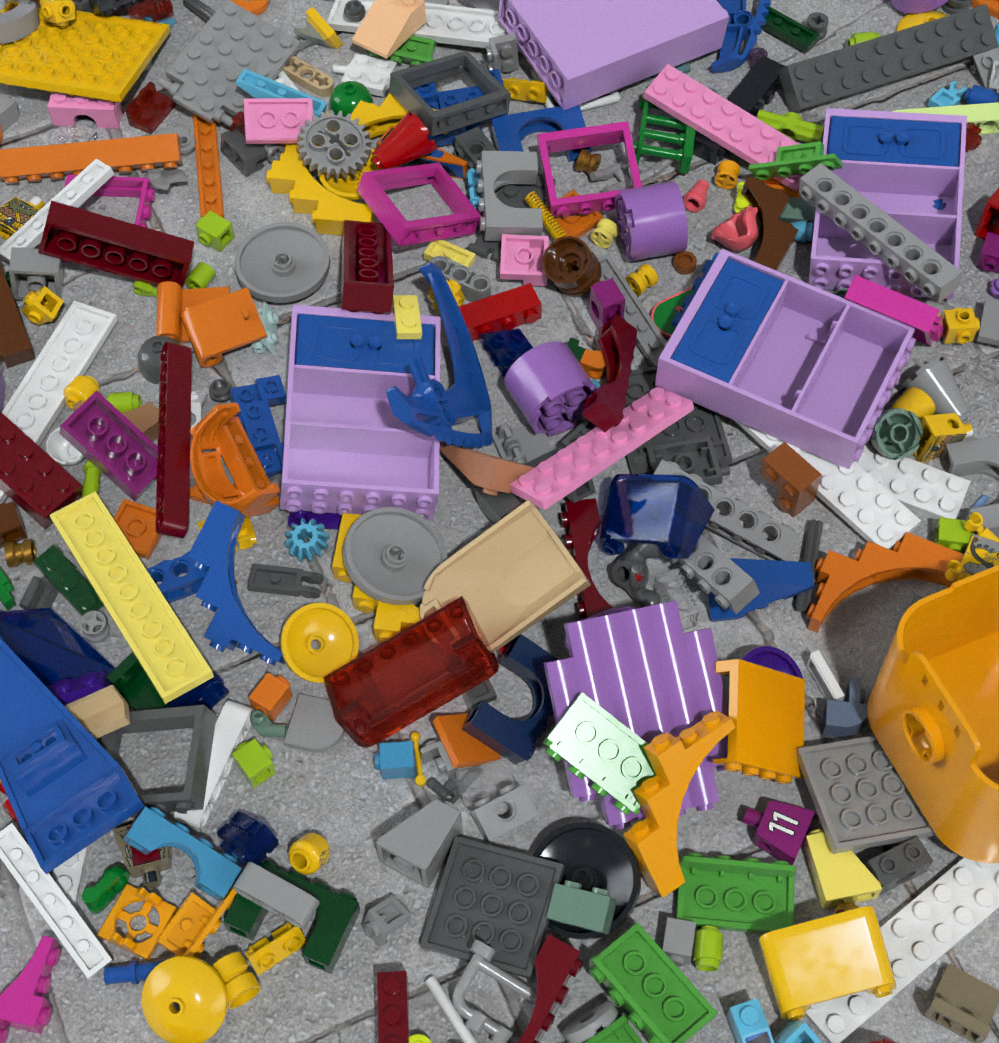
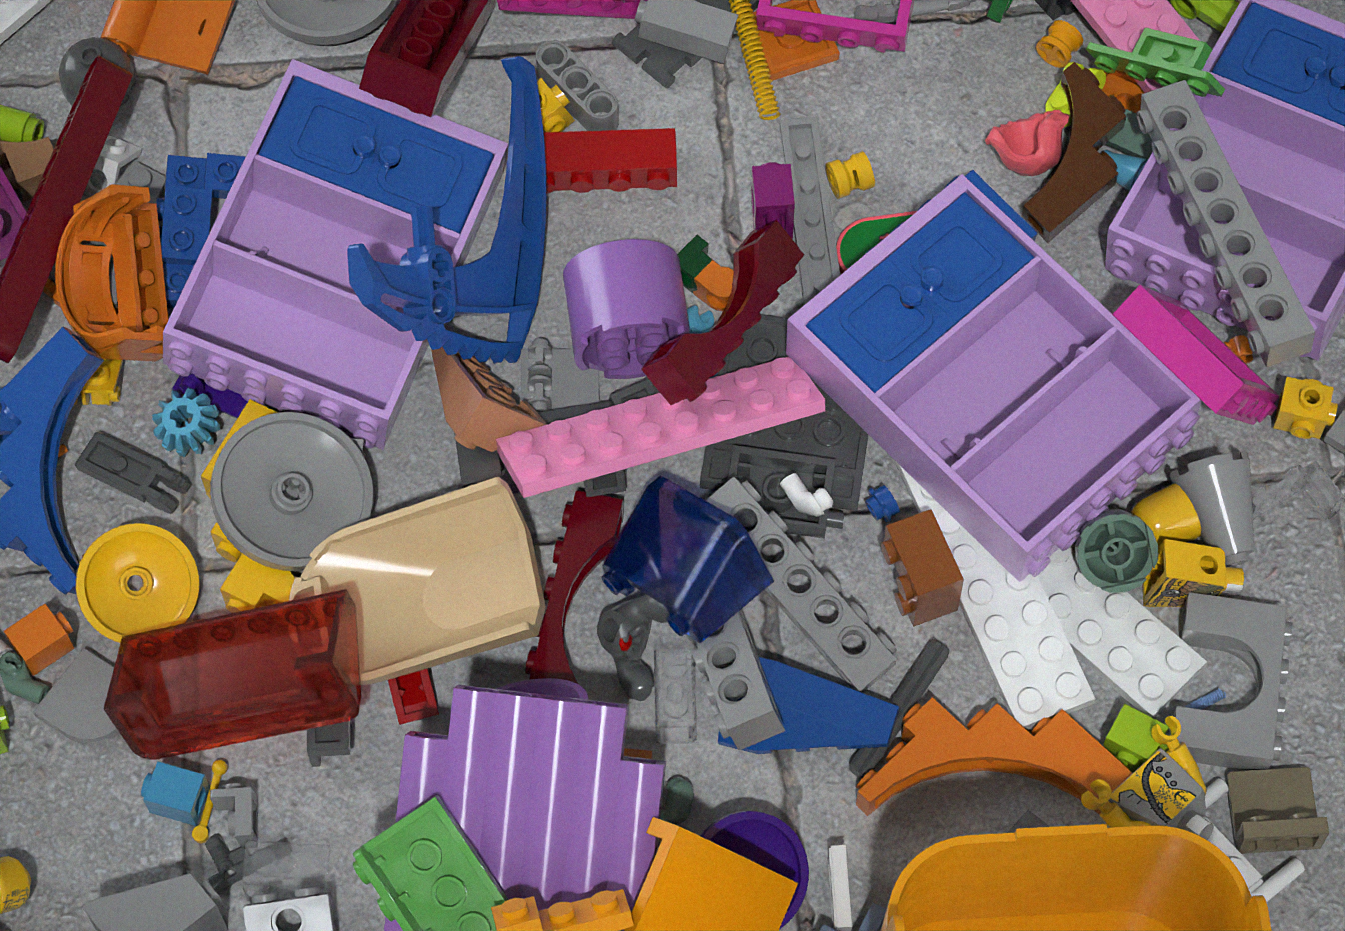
camera: 20 degrees right, 5 degrees up
(220, 390) = (157, 148): flat silver plate -> none
(221, 327) = (193, 52): orange door -> none
(269, 320) = (267, 70): light aqua hinge -> none
(407, 317) = (454, 130): light yellow plate -> none
(450, 251) = (581, 41): light yellow plate -> none
(460, 746) = (282, 799): orange tile -> none
(505, 347) = (603, 216): clear blue hinge -> none
(510, 736) = (337, 811): dark blue arch -> none
(523, 258) = (687, 86): bright pink plate -> none
(571, 266) = (746, 121): reddish brown wheel -> none
(604, 233) = (827, 81): light yellow wheel -> none
(651, 221) = (895, 87): medium lavender brick -> none
(684, 262) = (931, 166): dark orange tile -> none
(696, 197) = (994, 66): coral cone -> none
(705, 463) = (802, 499): none -> white arm
(745, 454) = (881, 504): none -> blue plate

